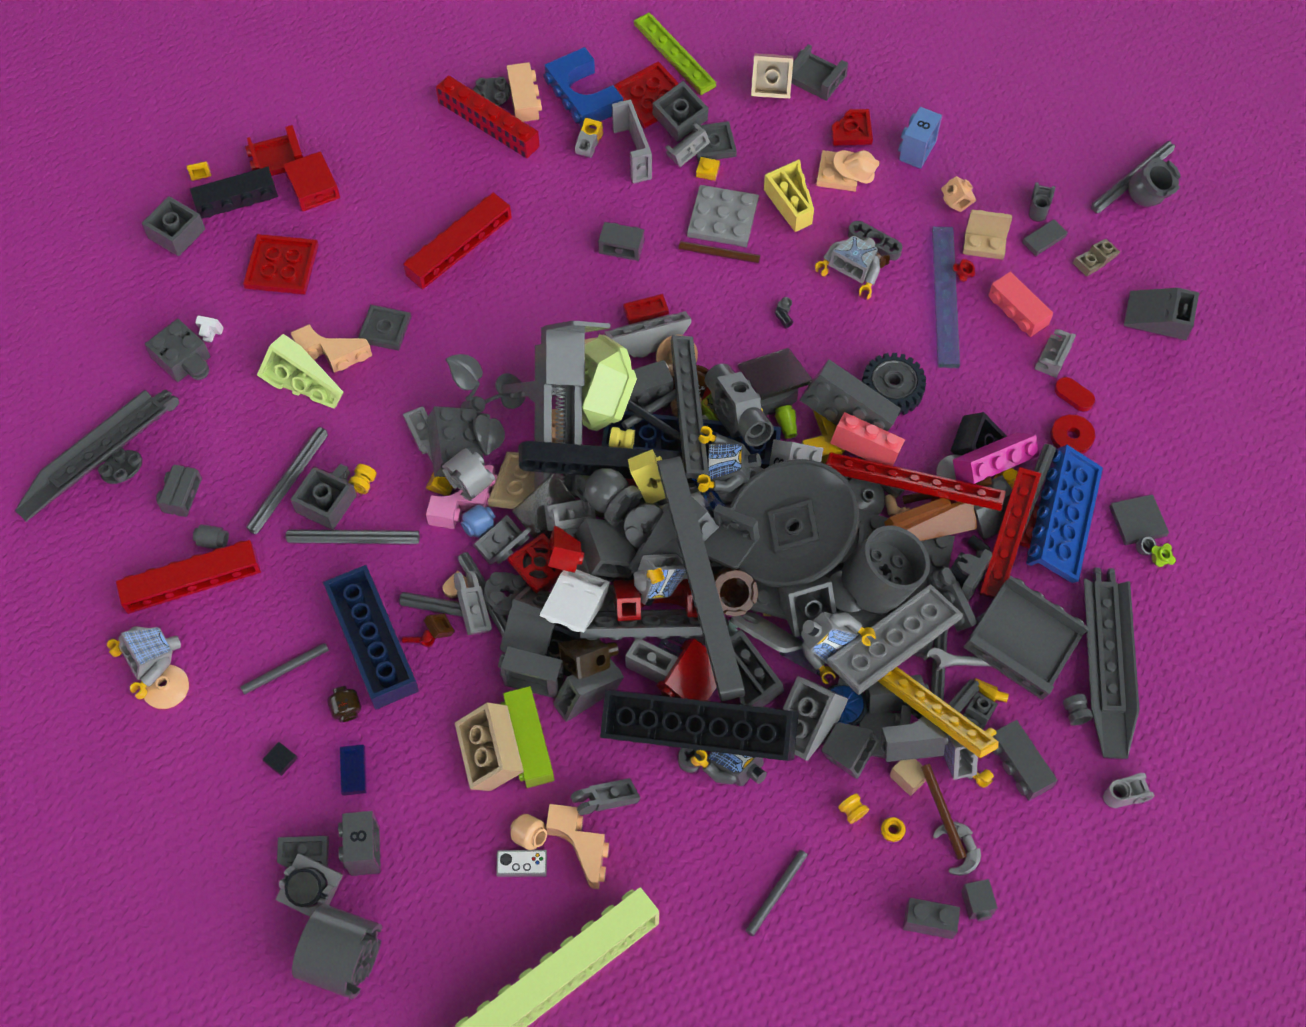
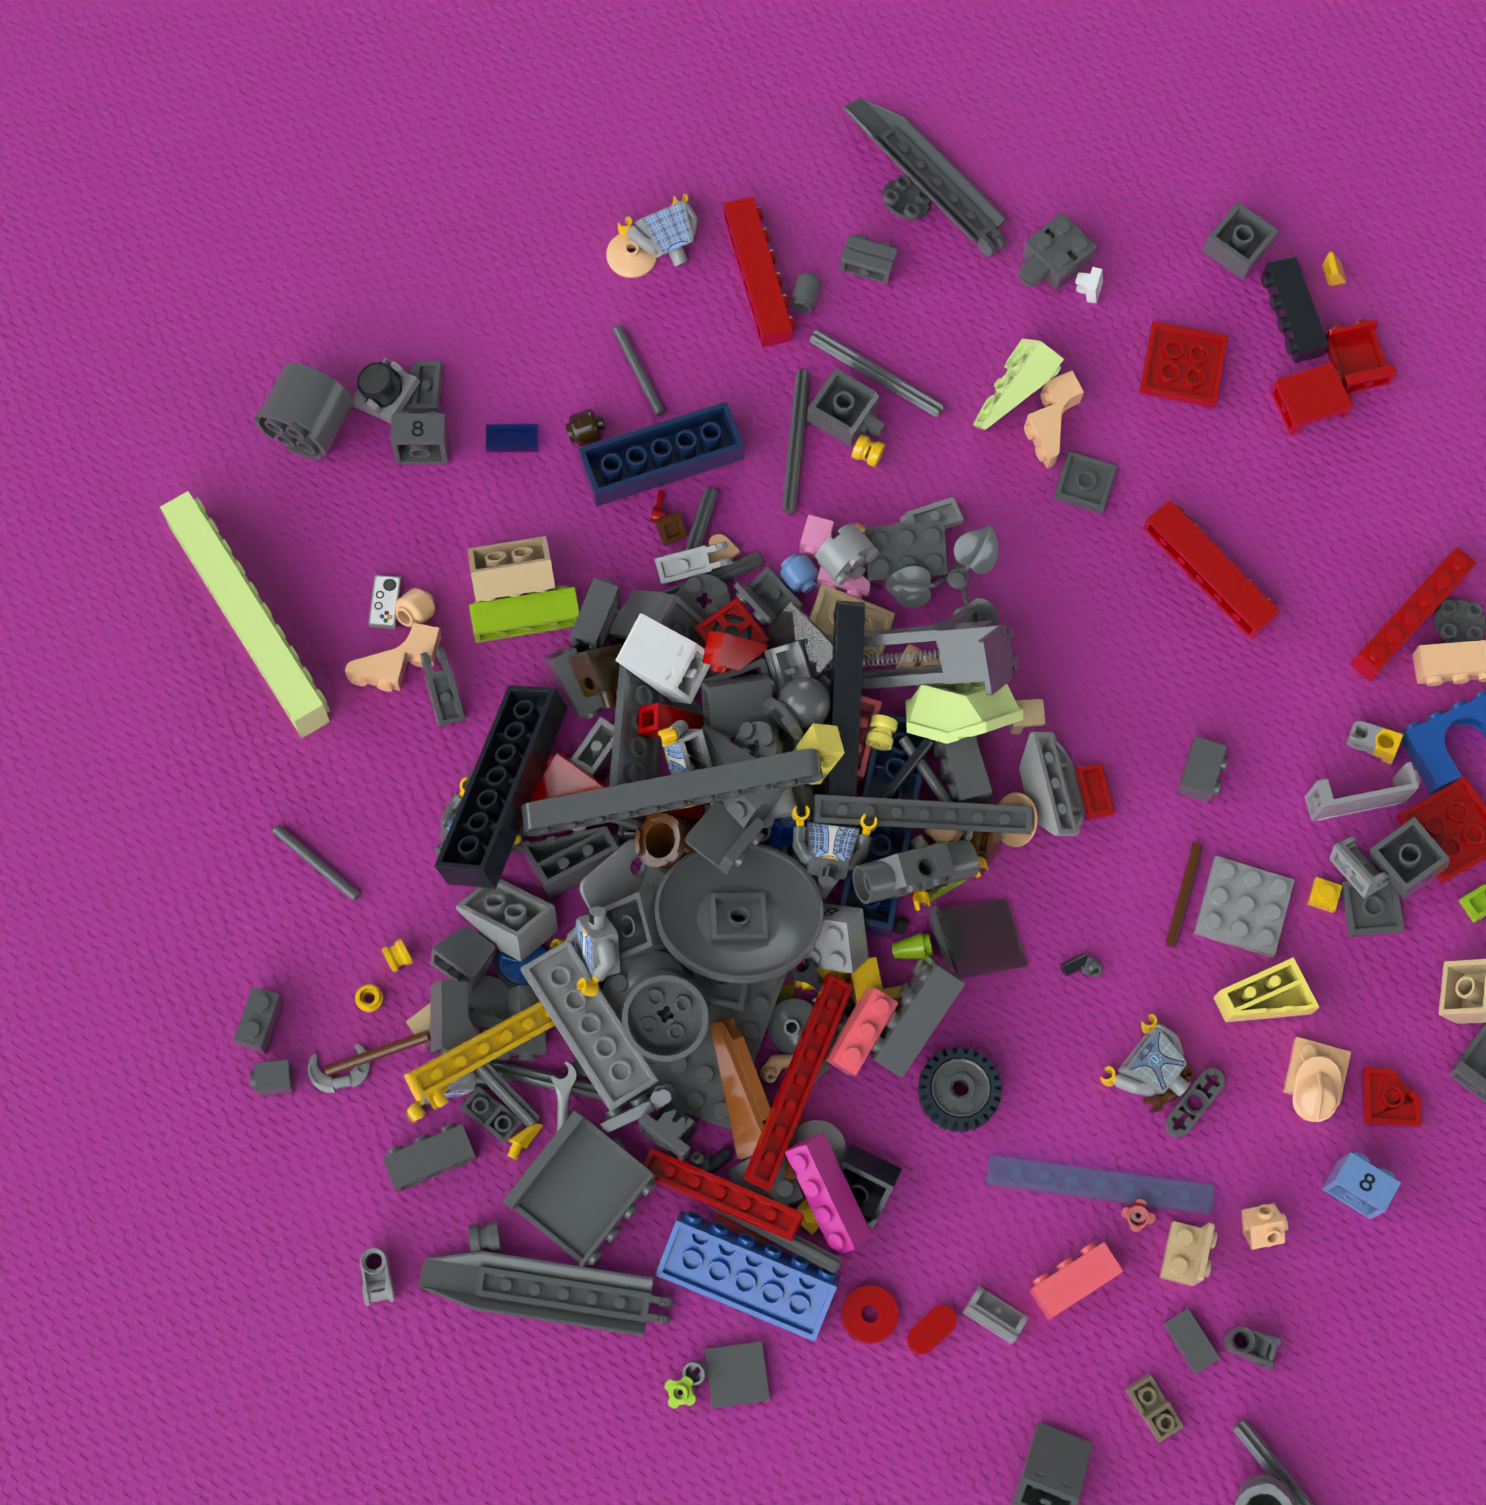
camera: 90 degrees right, 10 degrees up
(280, 758) = (533, 366): black tile -> none

